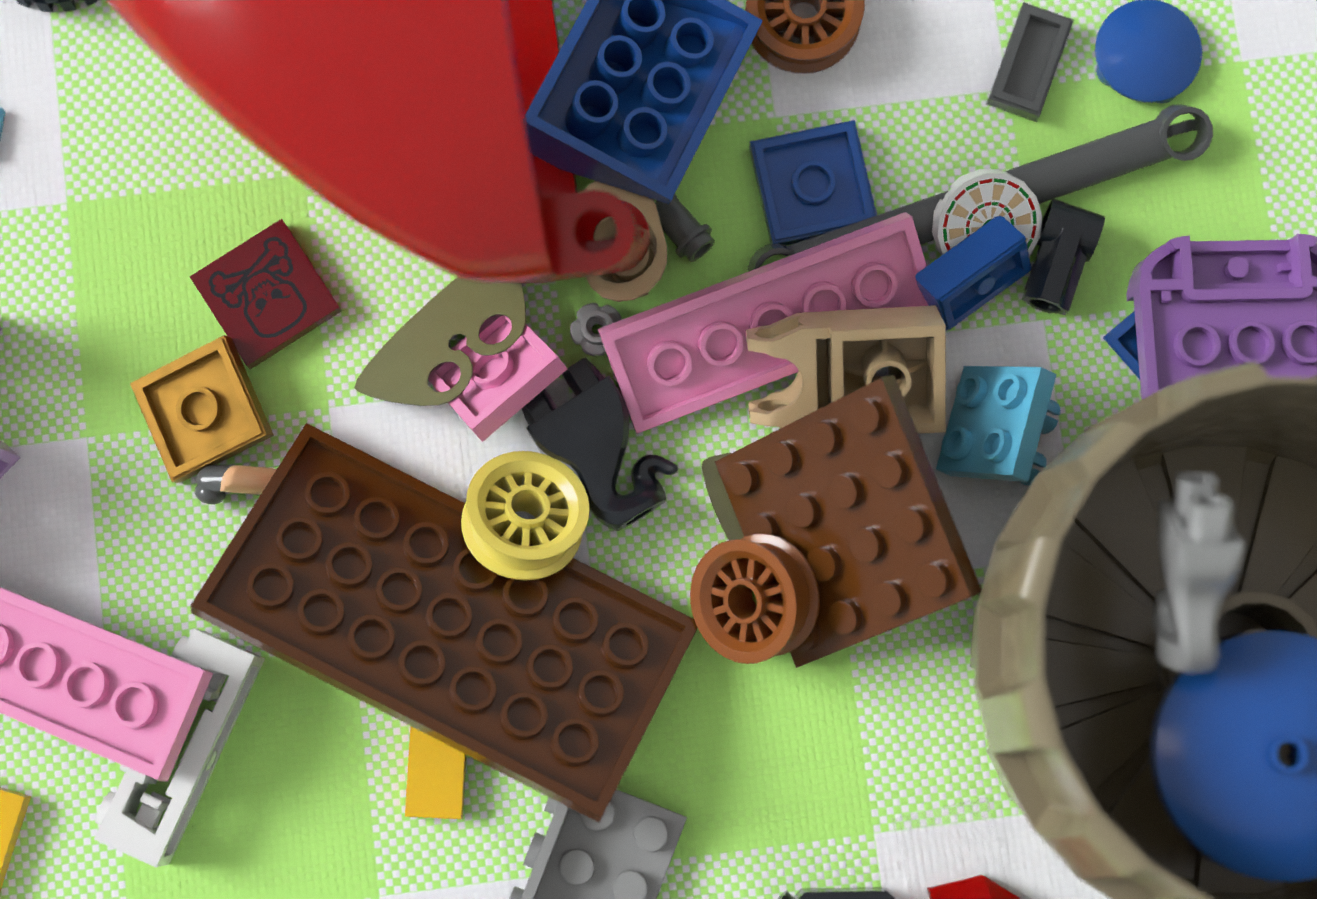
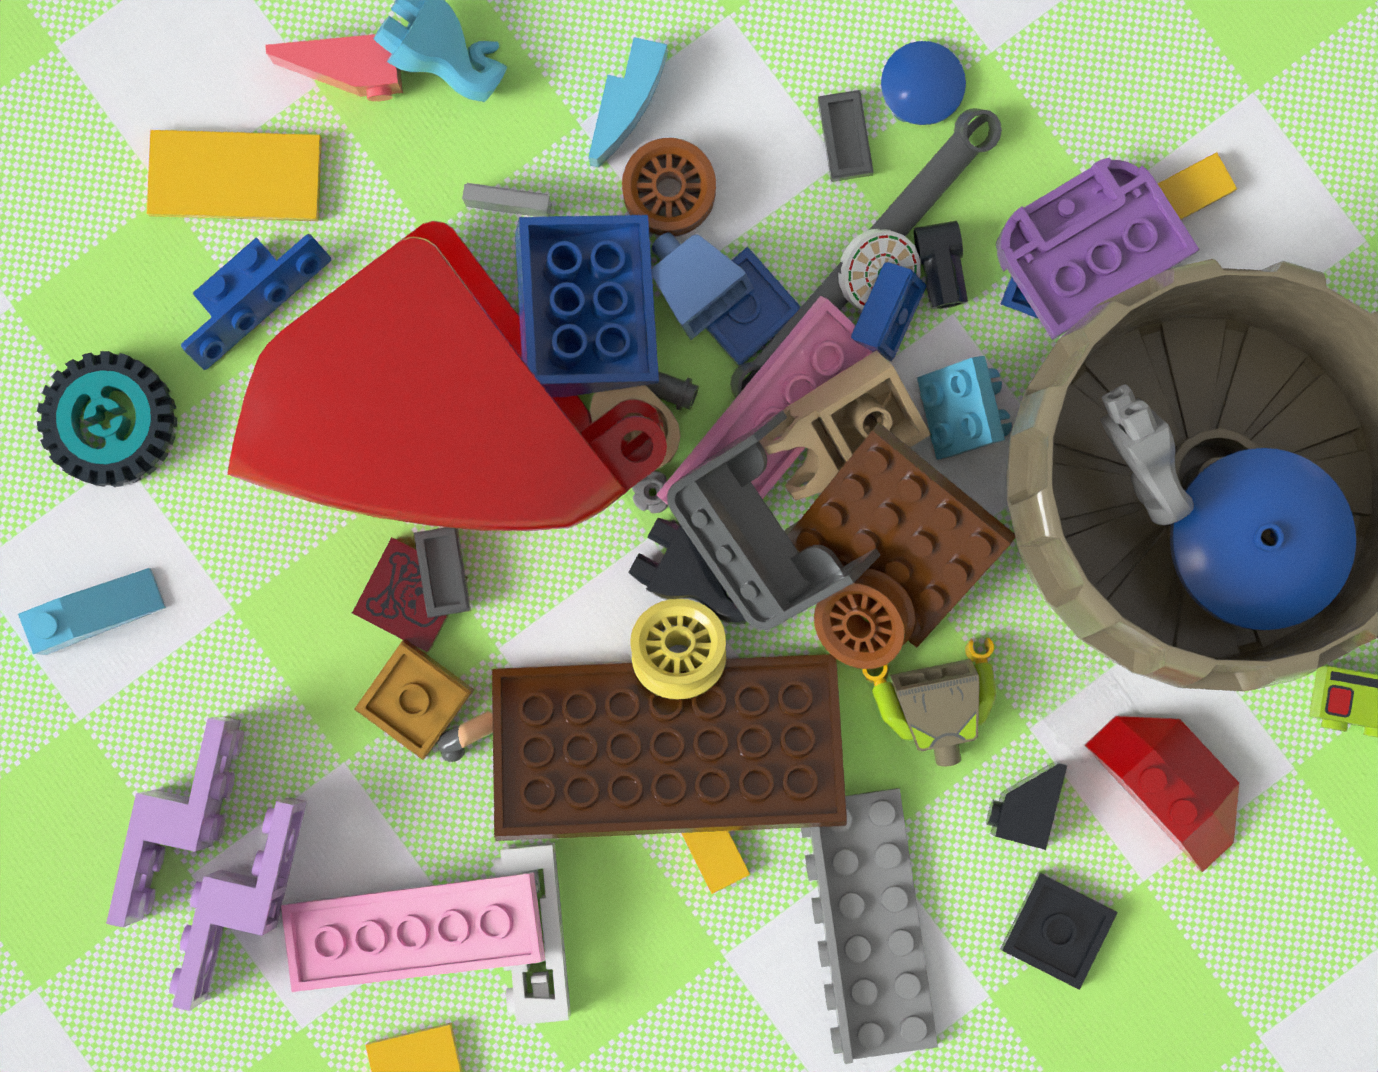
camera: 25 degrees left, 5 degrees up
(314, 285) = (442, 571): none -> dark grey tile
(404, 363) = (537, 573): olive piece -> none
(499, 381) = (601, 563): bright pink plate -> none
(667, 428) = (746, 542): none -> dark grey windscreen
(777, 123) = (697, 281): none -> medium blue torso
(785, 743) = (939, 702): none -> torso

